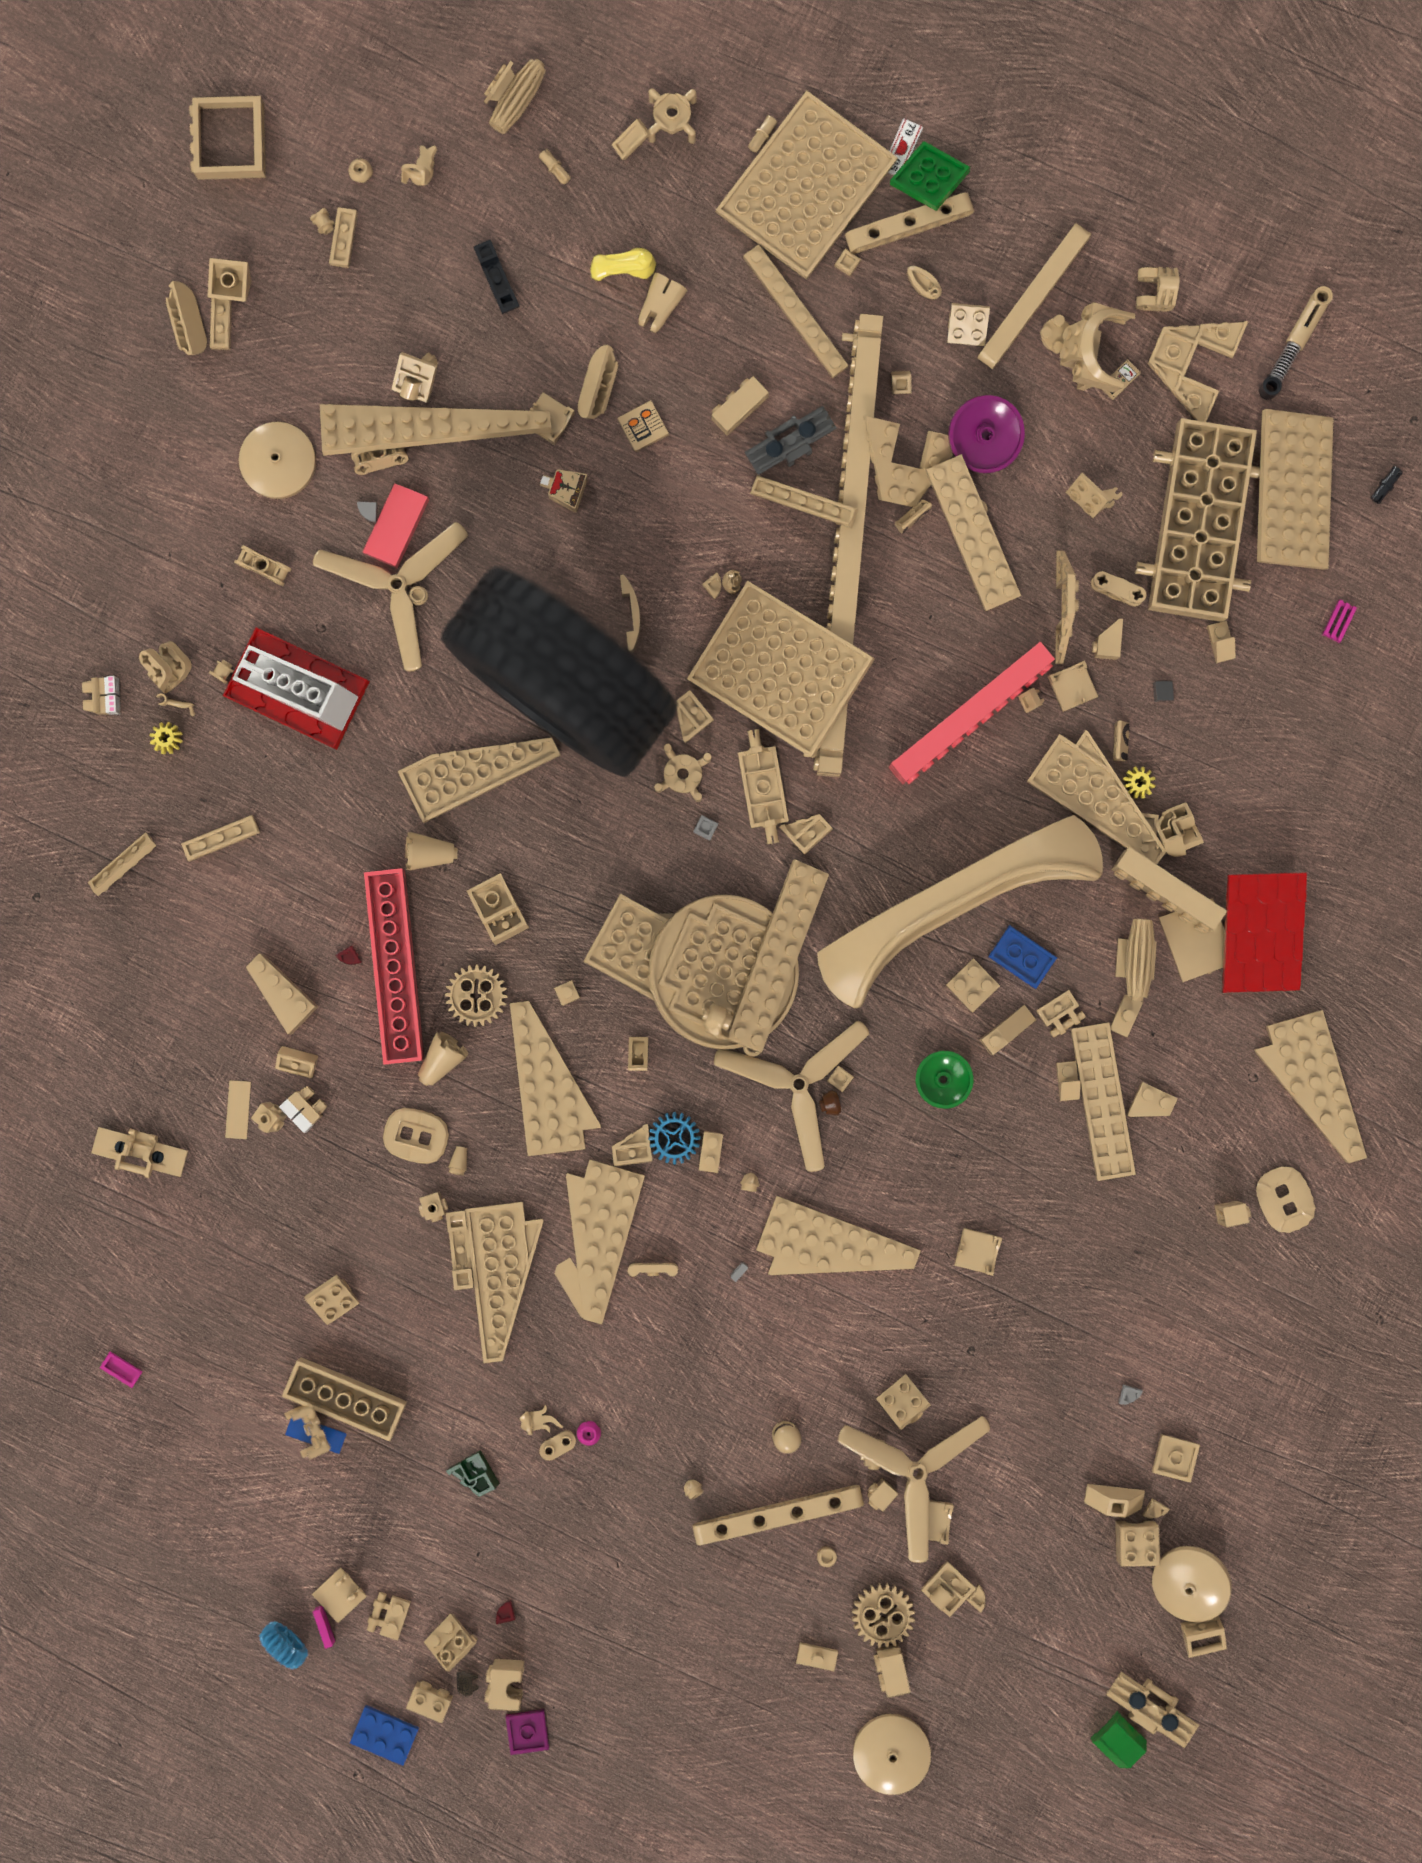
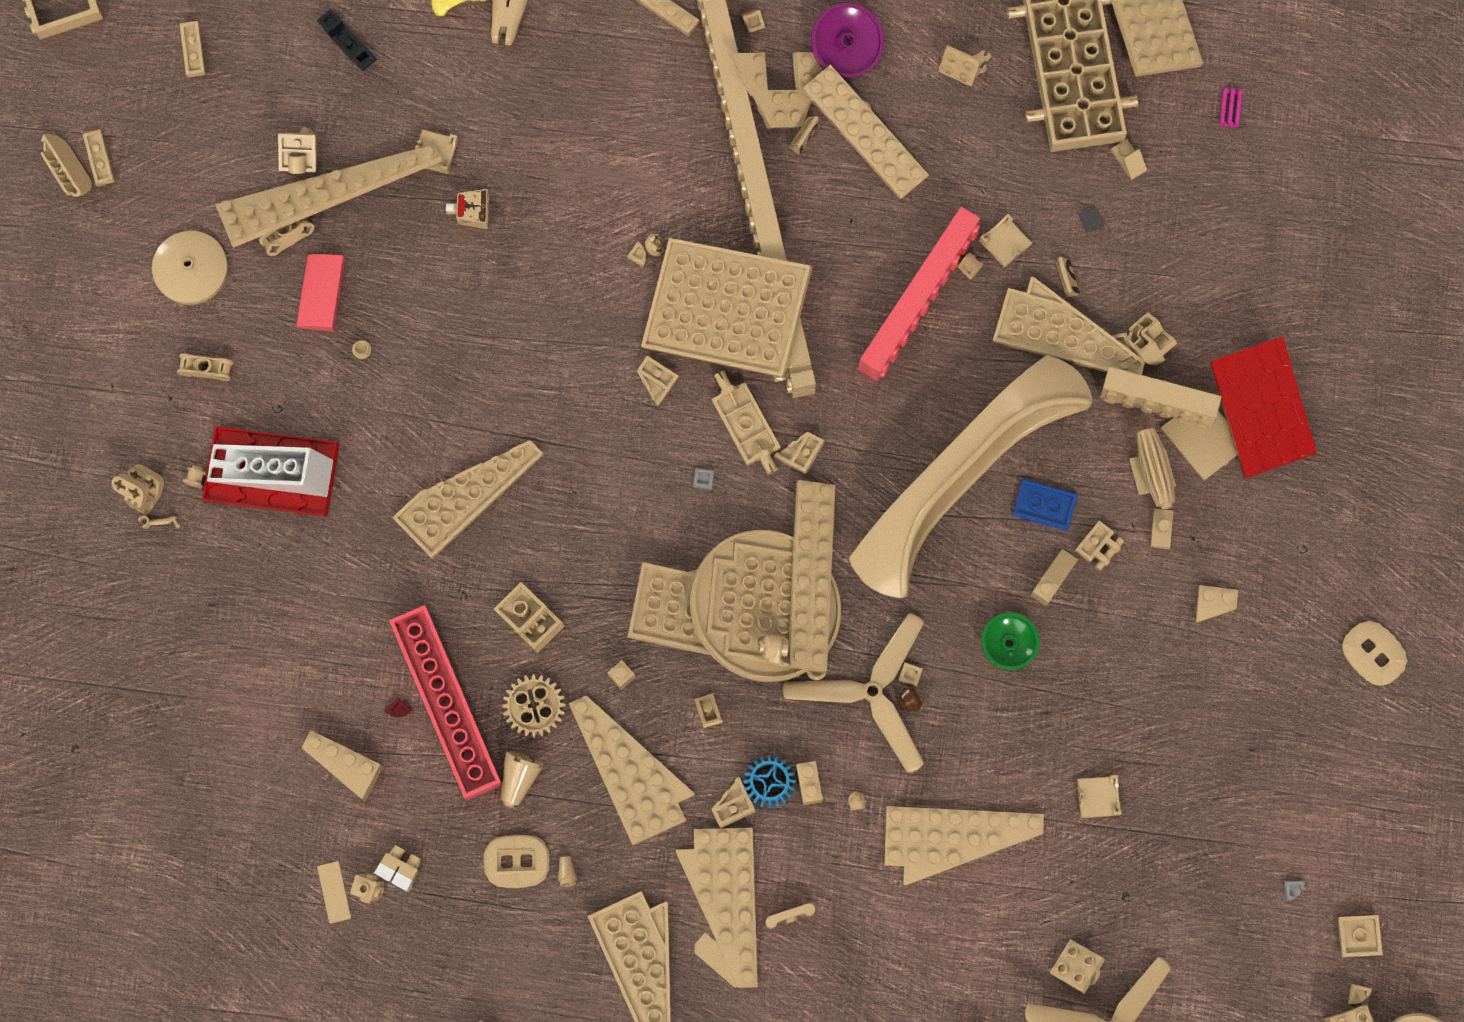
camera: 15 degrees left, 10 degrees down
(104, 695) = (88, 535): hips -> none
(122, 864) = (150, 689): tan plate -> none
(139, 1145) = (248, 957): tan piece -> none
(160, 735) = (166, 554): light yellow gear -> none
(220, 838) = (239, 635): tan tile -> none
(229, 279) = (96, 117): tan slope -> none
(296, 1062) = (377, 827): tan slope -> none
(322, 221) = (169, 40): tan brick -> none
(368, 510) = (290, 286): light grey tile -> none
(411, 572) = (348, 330): tan piece -> none
(427, 851) = (444, 583): tan cone -> none
(436, 1200) = (548, 920): tan brick -> none
(460, 1250) = (594, 958): tan slope -> none
(560, 670) = (521, 361): black tyre -> none
(598, 383) = (471, 105): tan brick -> none
(627, 591) = (560, 284): tan slope -> none
(643, 426) = (526, 132): tan tile -> none
(682, 762) = (663, 424): tan plate -> none
(739, 405) = (610, 85): tan brick -> none
(739, 1271) = (874, 891): light grey tile -> none
(794, 445) = (680, 88): dark grey piece -> none
(804, 501) = (698, 150): tan tile -> none
(972, 985) = (1006, 546): tan plate -> none
(1066, 581) = (967, 147): tan wing -> none
(1068, 1081) = (1128, 607): tan slope -> none
(1103, 1101) = (1168, 615): tan plate -> none
(1109, 642) = (1025, 191): tan slope -> none
(1114, 1500) = (1314, 996): tan slope -> none
(1118, 589) = (1016, 141): tan piece -> none
(1135, 775) = (1103, 304): light yellow gear -> none
(1232, 1213) = (1328, 680): tan brick -> none
(1309, 1070) = (1353, 525): tan wing -> none

